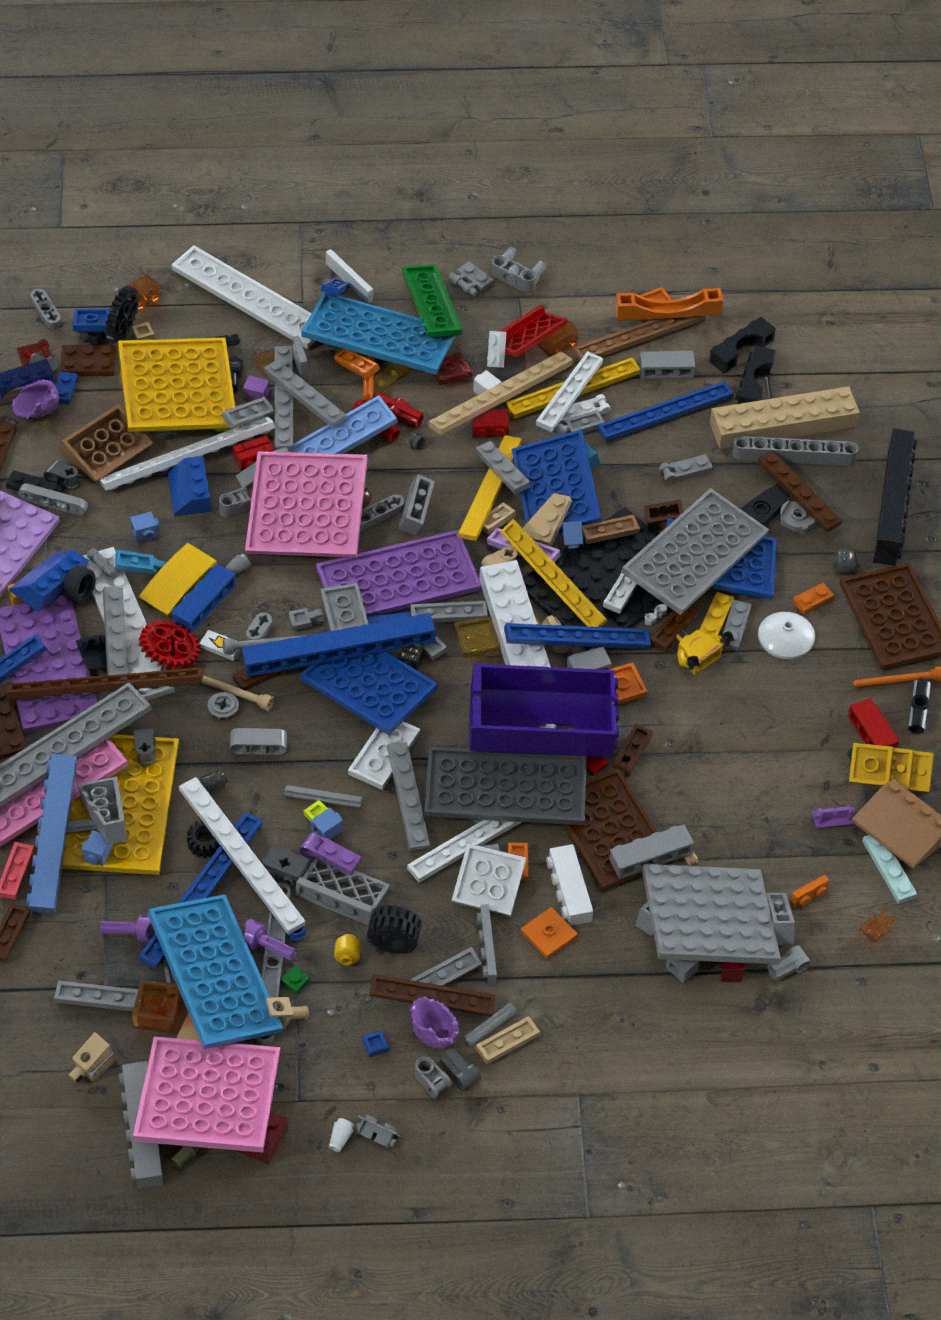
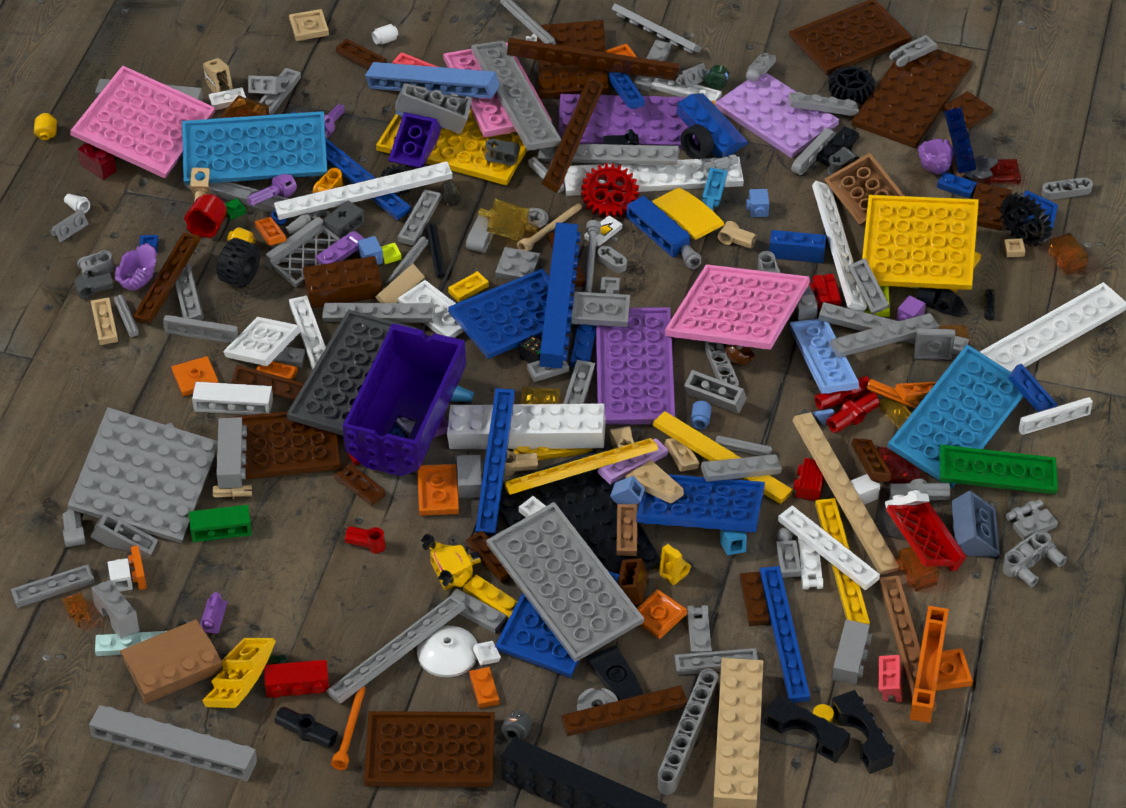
camera: 110 degrees right, 5 degrees down
(93, 1002) = (266, 84): none -> light grey hinge
(120, 1043) = (225, 98): none -> white plate
(154, 826) = (415, 140): none -> dark purple slope
(157, 707) = (541, 170): none -> light grey axle
(196, 533) = (732, 233): none -> tan piece
(227, 1215) = (45, 126): none -> yellow head
(236, 895) = (330, 180): none -> light orange piece
(245, 716) = (507, 220): none -> clear yellow plate
(256, 802) = (419, 217): none -> light grey plate
(293, 704) = (516, 263): none -> light grey plate
(296, 777) = (436, 250): none -> black axle
(304, 905) = (297, 224): none -> light grey cone
(324, 989) = (206, 215): none -> red cylinder
(327, 925) = (270, 231): none -> orange tile
(342, 733) = (468, 287): none -> yellow plate
(363, 790) = (401, 285): none -> tan tile
(377, 838) = (342, 281): none -> reddish brown brick
(406, 430) = (822, 416): none -> medium blue slope
(443, 514) = (700, 415): none -> medium blue brick
(458, 380) = (871, 460): none -> reddish brown plate
(466, 479) = (744, 446): none -> light grey axle
(473, 351) = (935, 491): none -> light grey piece
(497, 310) = (975, 526): none -> sand blue slope
(536, 861) = (280, 386): none -> reddish brown tile
(631, 492) = (672, 565): none -> yellow plate
(635, 440) = (754, 598): none -> reddish brown plate
(682, 333) = (891, 677): none -> coral hinge
(684, 490) = (660, 613): none -> orange plate
(695, 724) = (372, 538): none -> red piece
(708, 445) = (696, 662): none -> light grey tile
(728, 842) = (220, 523): none -> green brick
(733, 374) = (824, 711): none -> yellow tile
(781, 602) = (486, 653): none -> white plate
(807, 664) = (395, 649): none -> light grey tile
(825, 903) = (120, 574): none -> white brick
(858, 960) = (52, 586): none -> light grey tile
(863, 894) = (111, 602): none -> light grey arch

